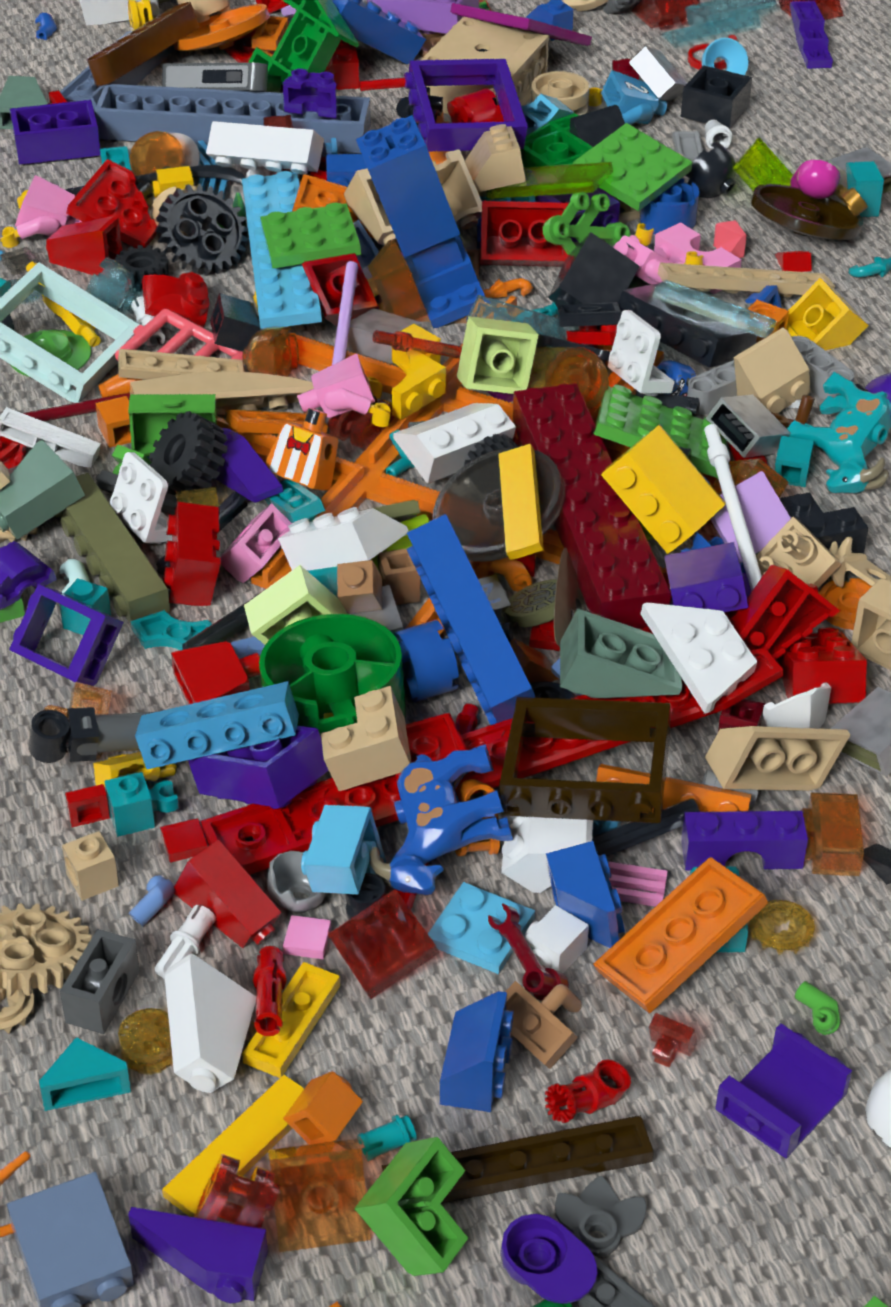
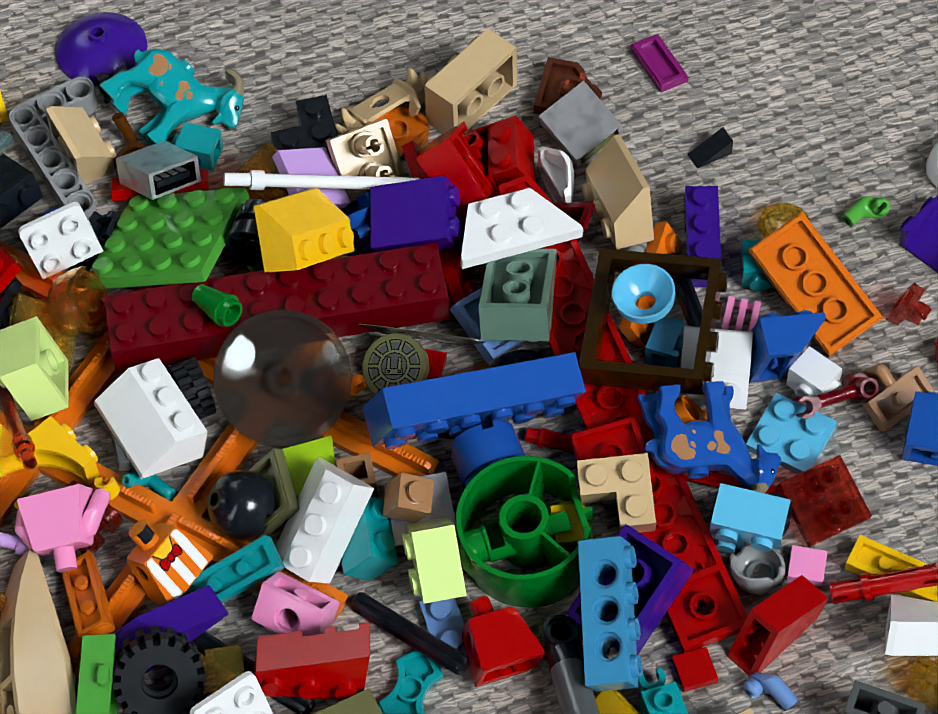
camera: 85 degrees left, 15 degrees up
(187, 938) = (823, 660): white axle -> none
(366, 490) = (240, 504): none -> black cylinder
(520, 502) = (305, 349): yellow tile -> none
(560, 436) = (218, 305): none -> green cone
(598, 716) = (639, 282): none -> medium azure piece
(834, 834) = (688, 168): clear orange brick -> none

